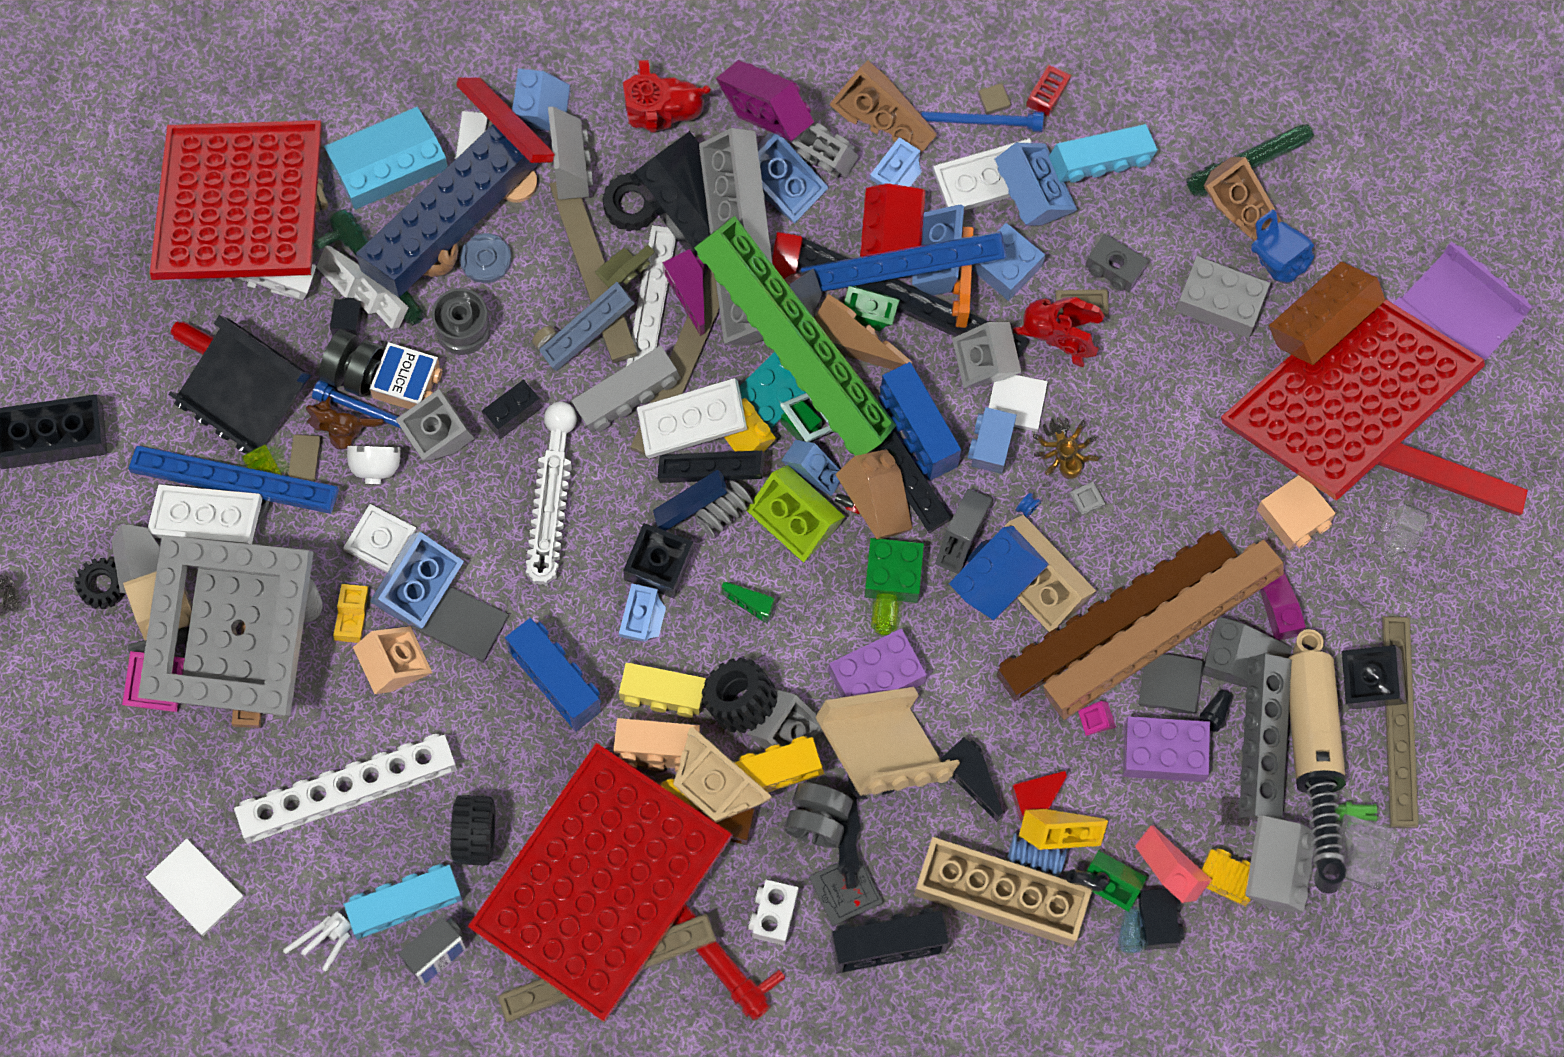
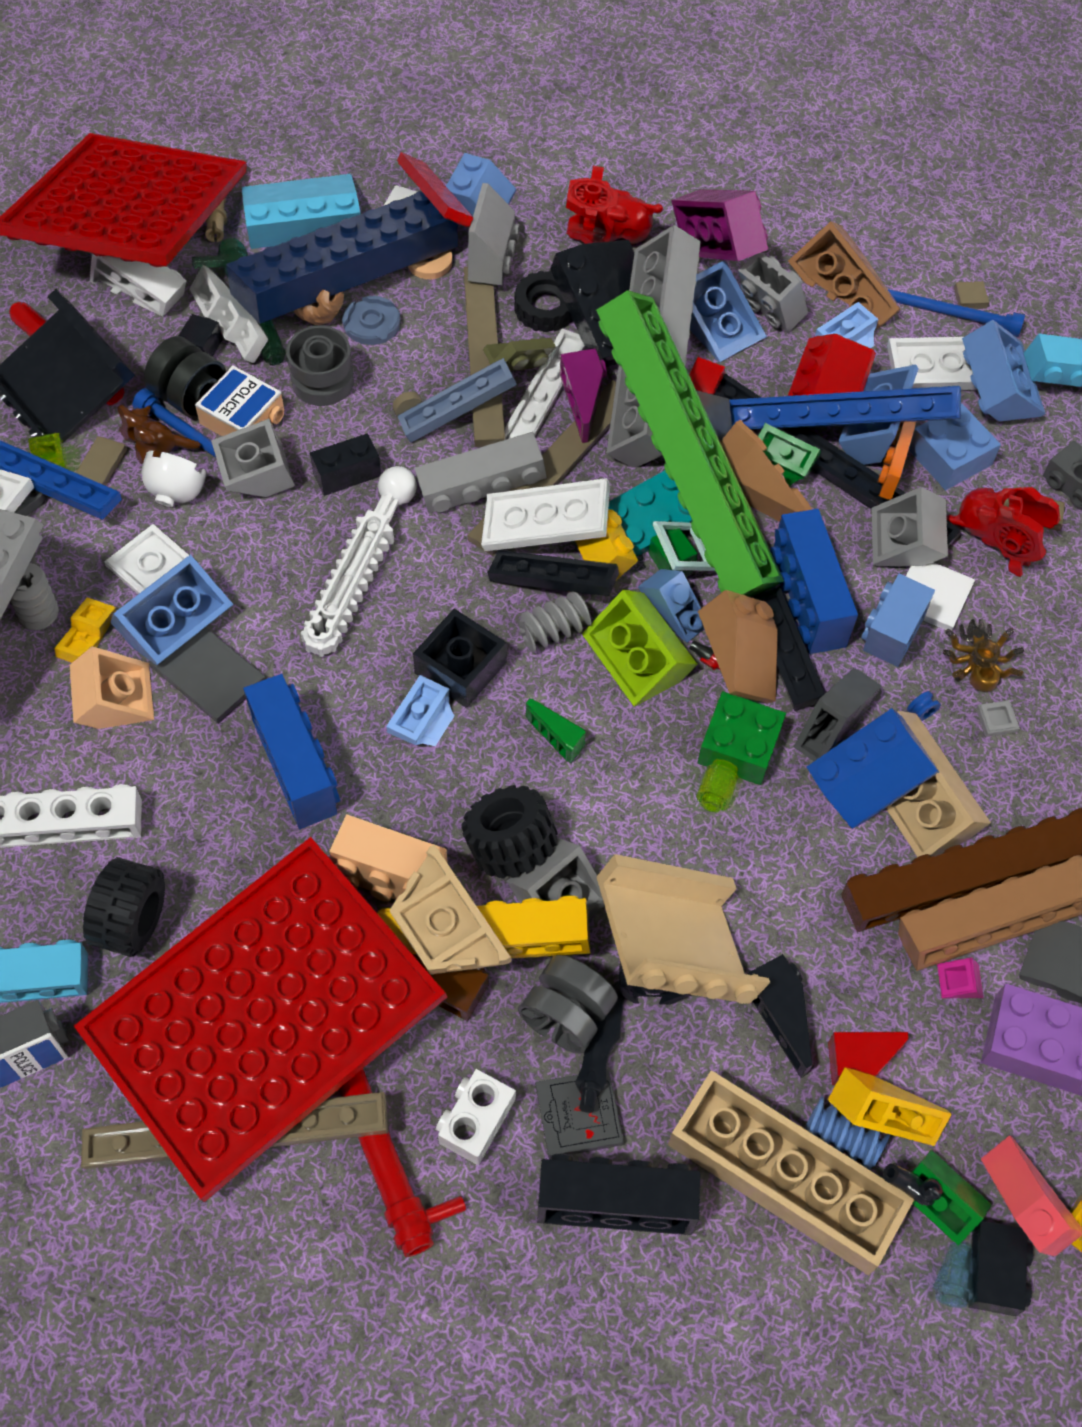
camera: 15 degrees right, 10 degrees down
(661, 690) = (417, 804): light yellow brick -> none
(690, 500) = (519, 601): dark blue tile -> none
(878, 667) = (695, 840): medium lavender brick -> none
(1041, 105) = (1031, 302): red slope -> none

